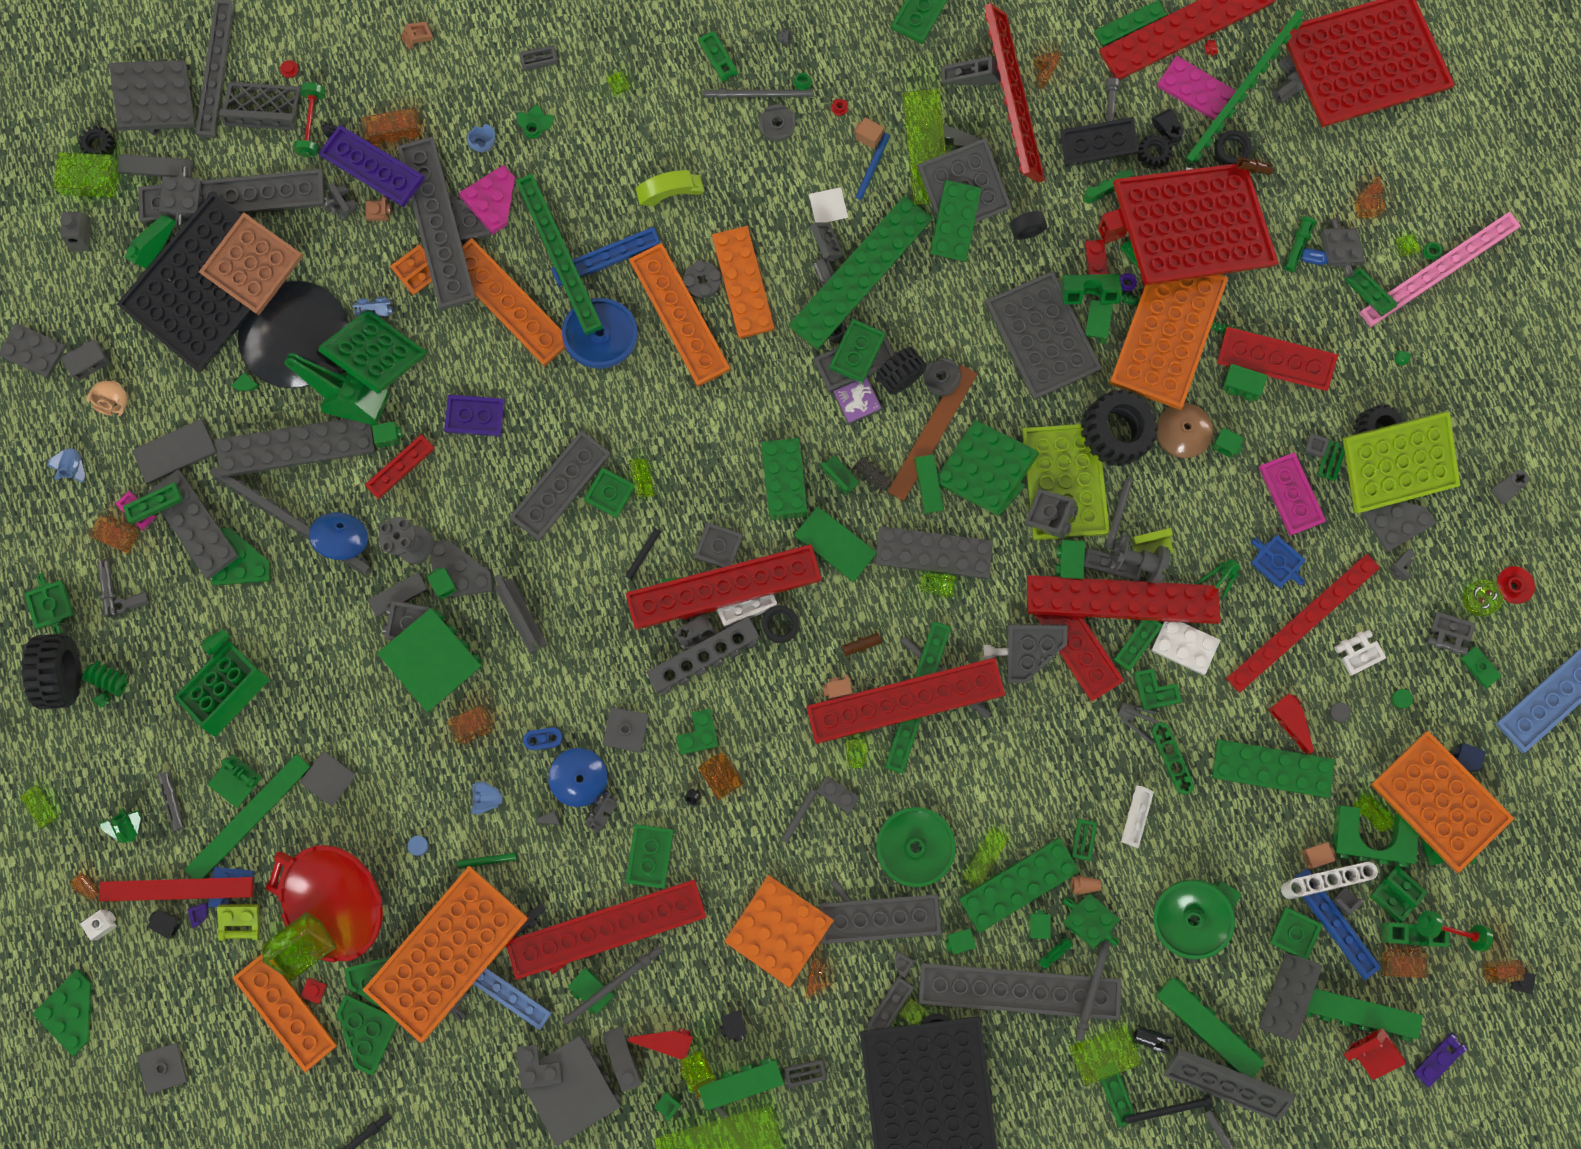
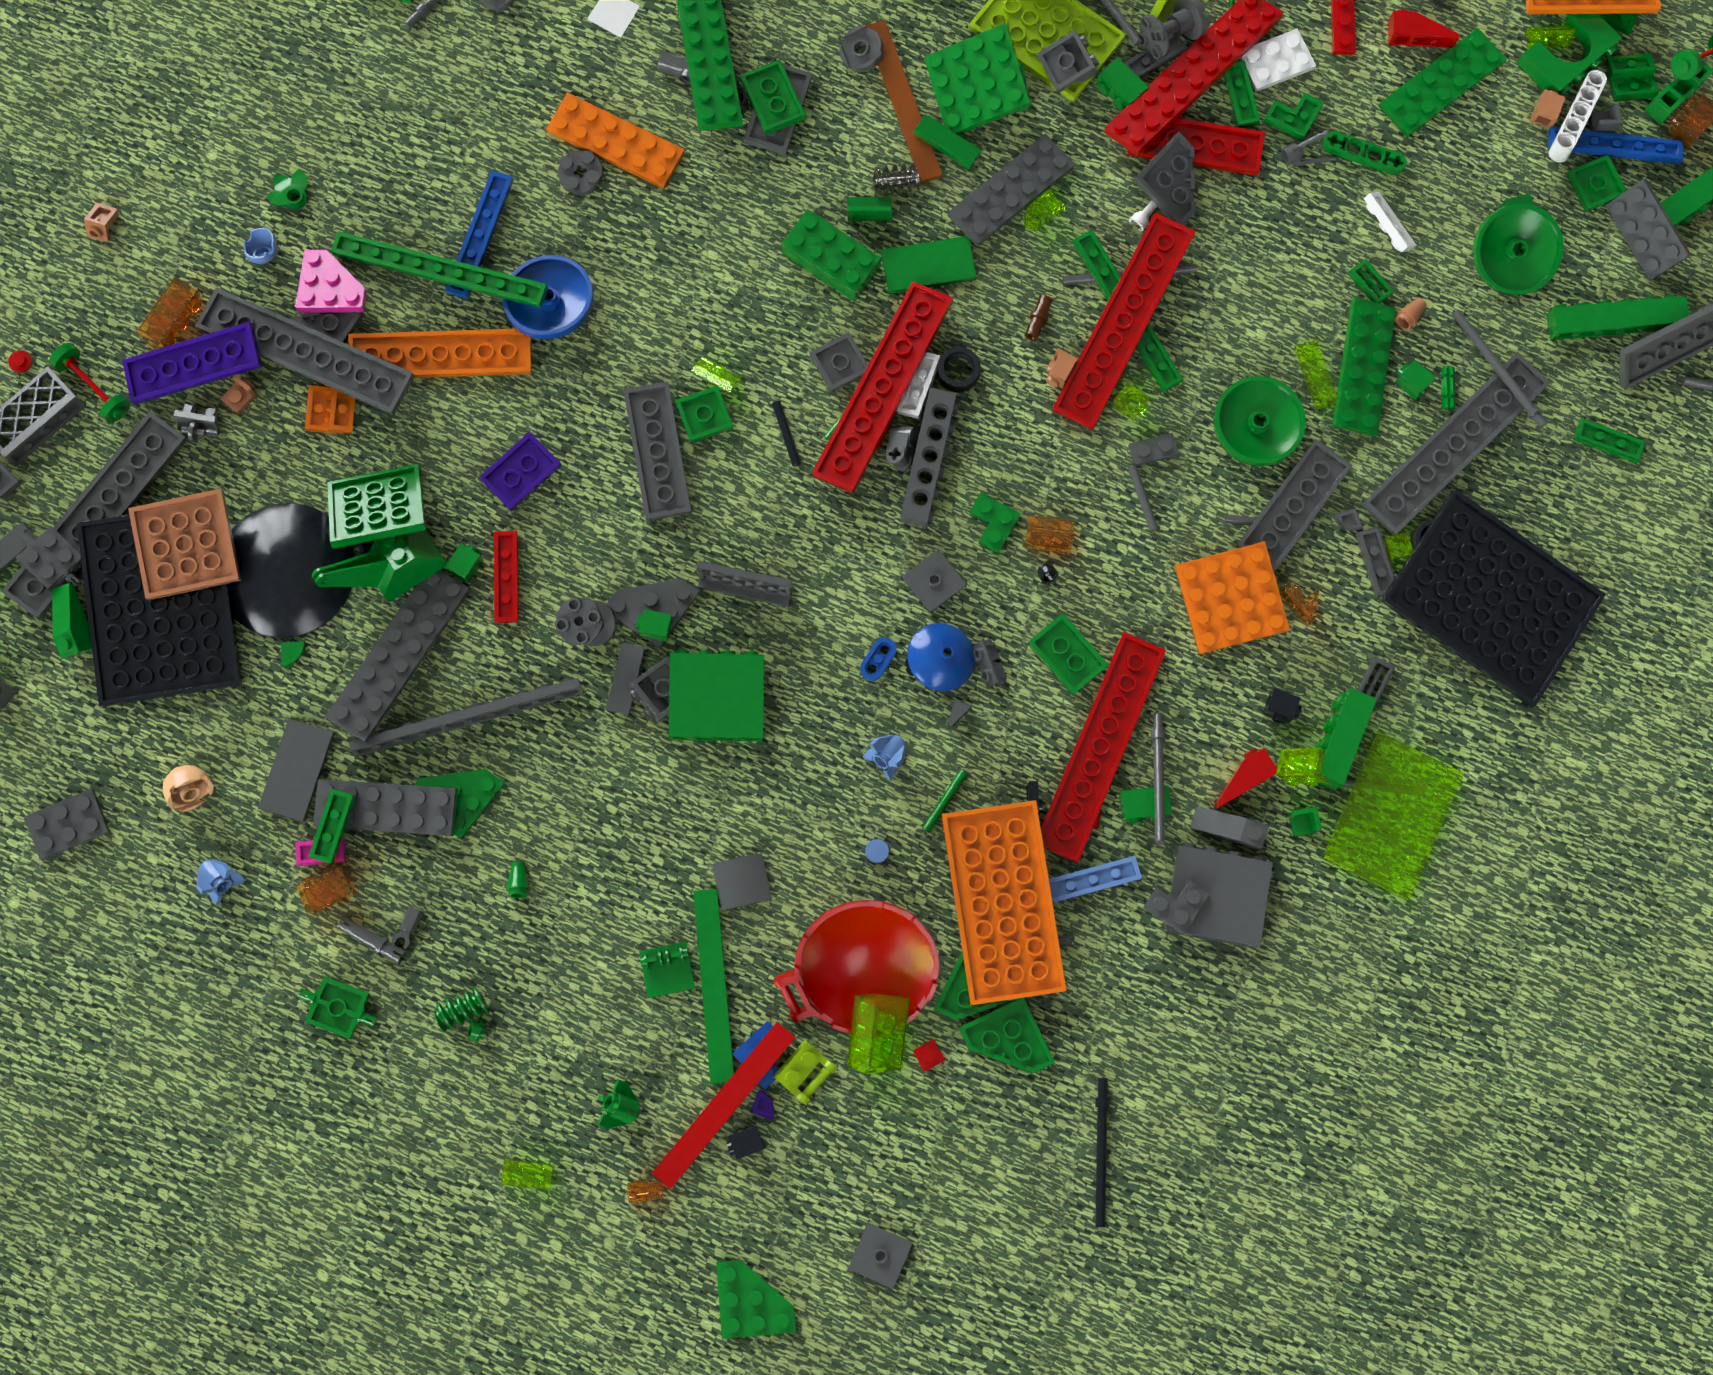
camera: 55 degrees left, 0 degrees up
(51, 671) = (412, 1049): black tyre -> none
(85, 360) = (126, 779): dark grey brick -> none
(99, 924) = (692, 1205): white brick -> none
(169, 796) = (633, 1044): dark grey pin -> none
(221, 689) = (568, 909): green slope -> none
(285, 1013) = (926, 1097): orange plate -> none
(328, 129) = (115, 375): black plate -> none
(338, 536) = (522, 683): blue dish -> none
(380, 305) = (334, 468): medium blue hinge -> none
(470, 724) = (808, 710): clear orange brick -> none
(525, 66) = (237, 141): dark grey tile -> none
(618, 83) = (324, 88): clear neon green plate -> none
(667, 185) = (465, 125): lime arch -> none
(679, 315) = (594, 217): orange plate -> none
(827, 241) = (648, 38): dark grey bracket -> none
(857, 401) = (815, 138): tile -> none
(901, 370) = (827, 73): black tyre -> none
(960, 941) = (1372, 455): green brick -> none
(1091, 921) = (1447, 333): green plate -> none
(1105, 1055) = (1570, 420): clear neon green tile -> none
(1149, 1039) = (1586, 372): black hinge -> none
(1205, 1102) = (1675, 373): black bar -> none

